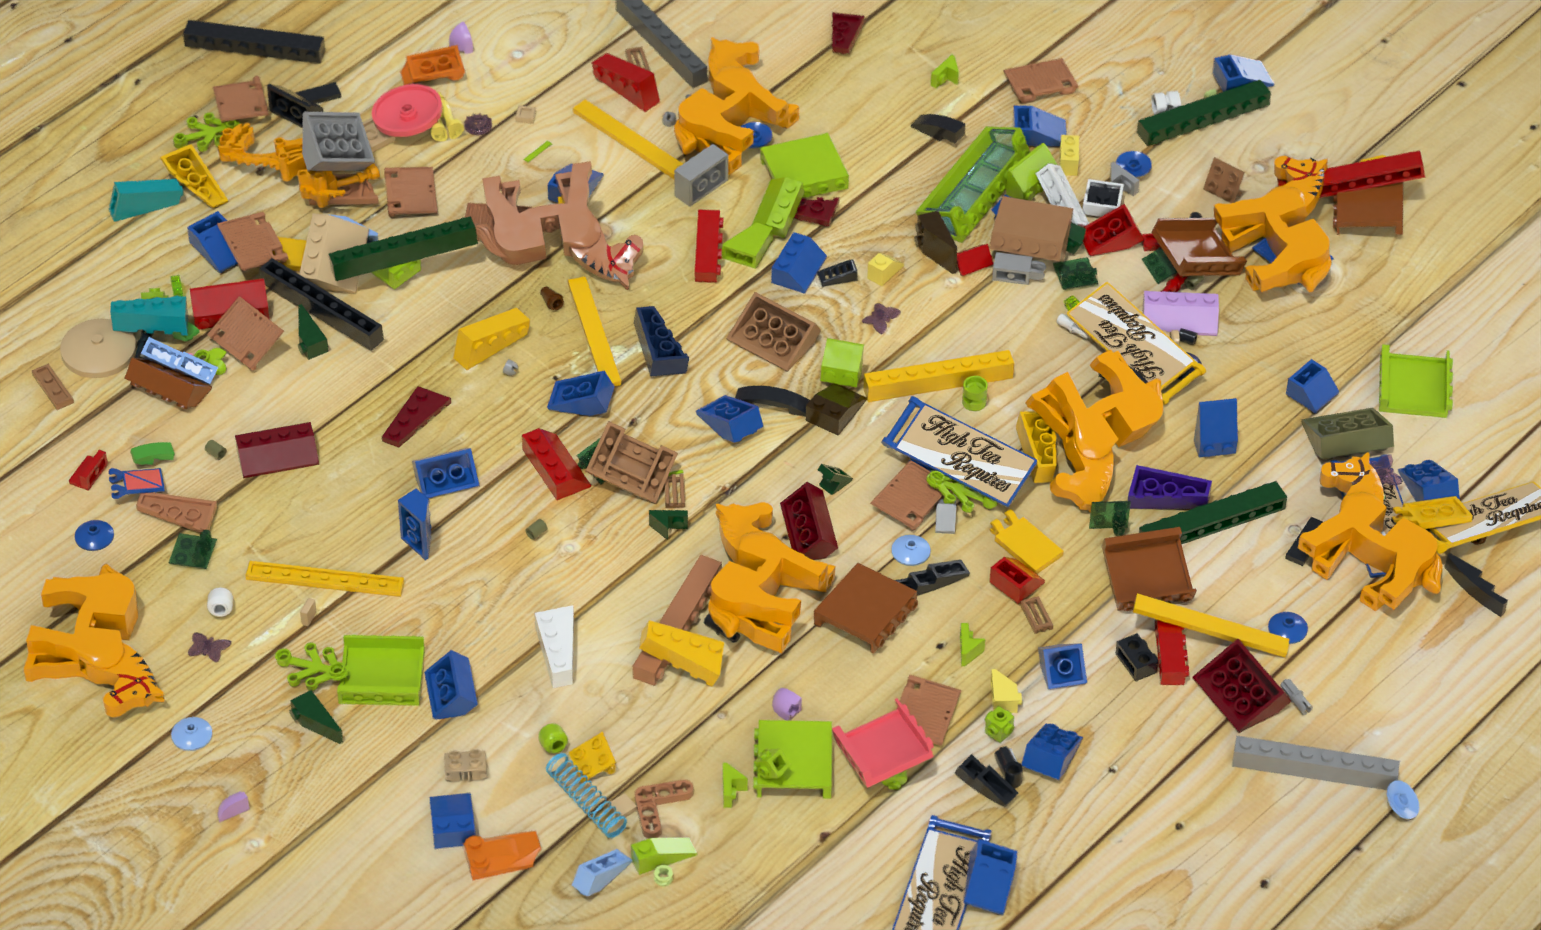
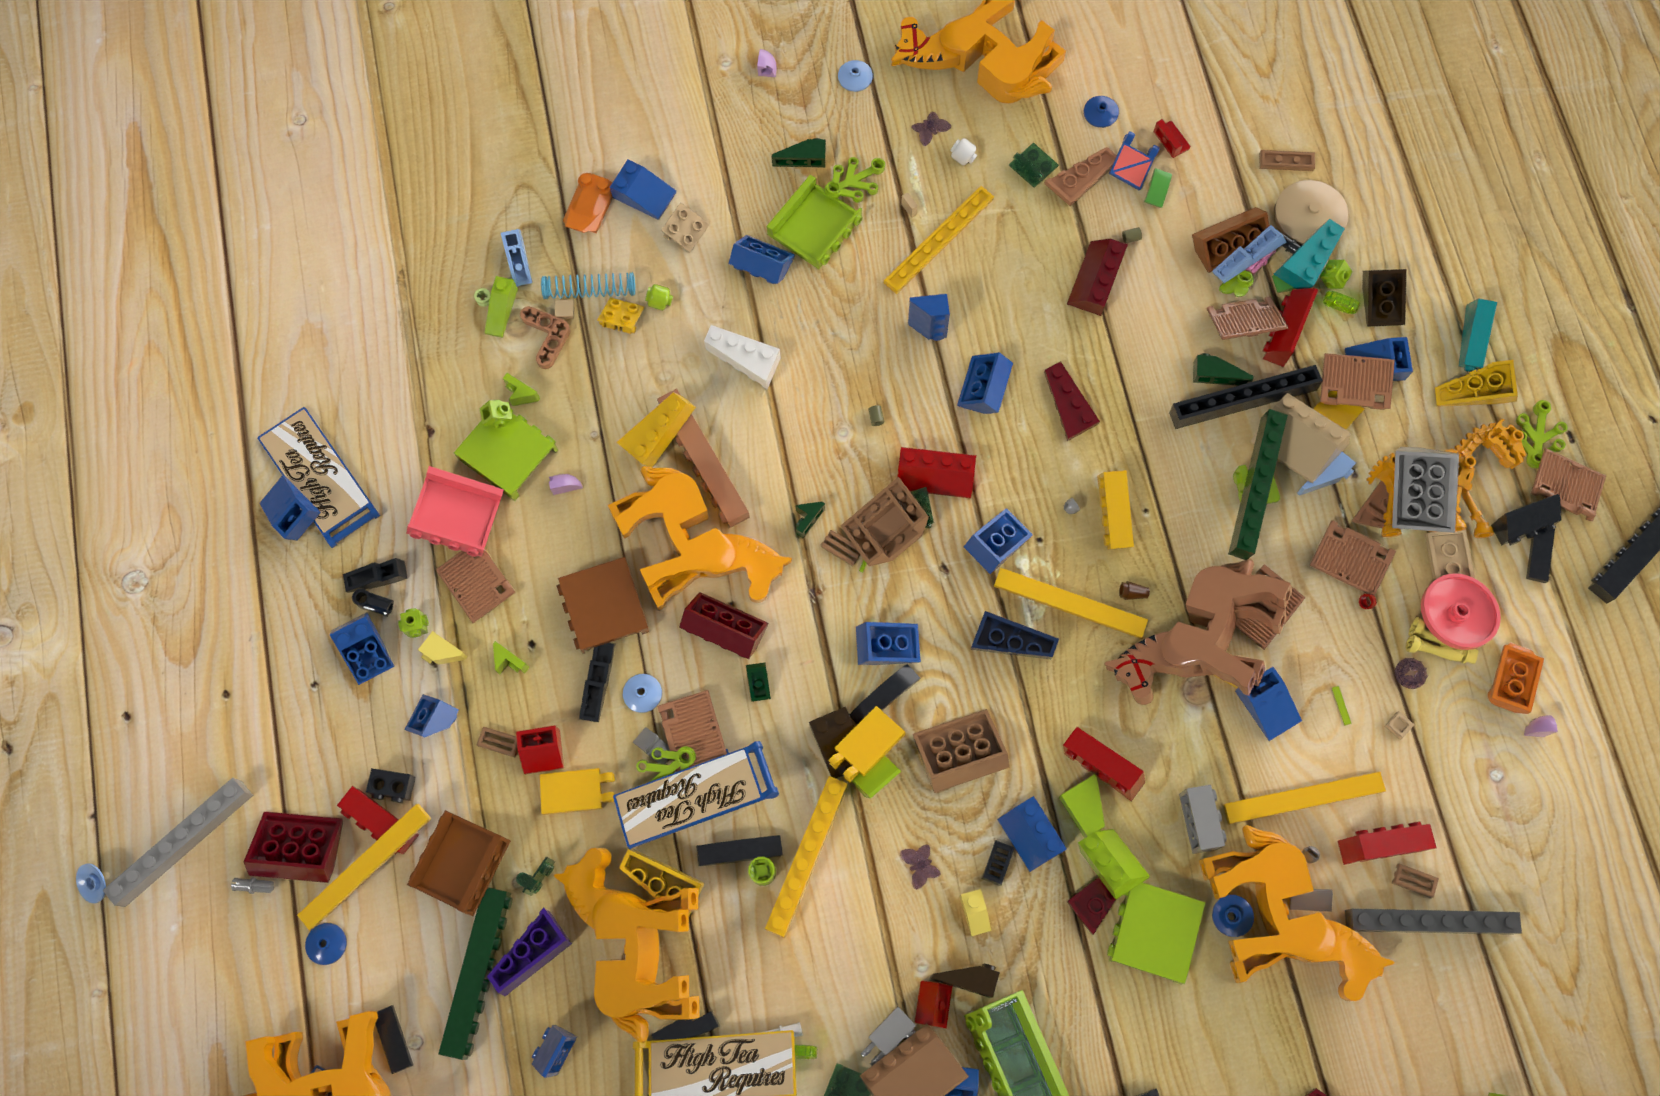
camera: 130 degrees right, 25 degrees up
(148, 266) = (1384, 297): none -> dark brown slope
(443, 170) = (1365, 603): none -> red hinge
(824, 374) = (867, 744): none -> yellow tile
(972, 415) = (739, 850): none -> black slope

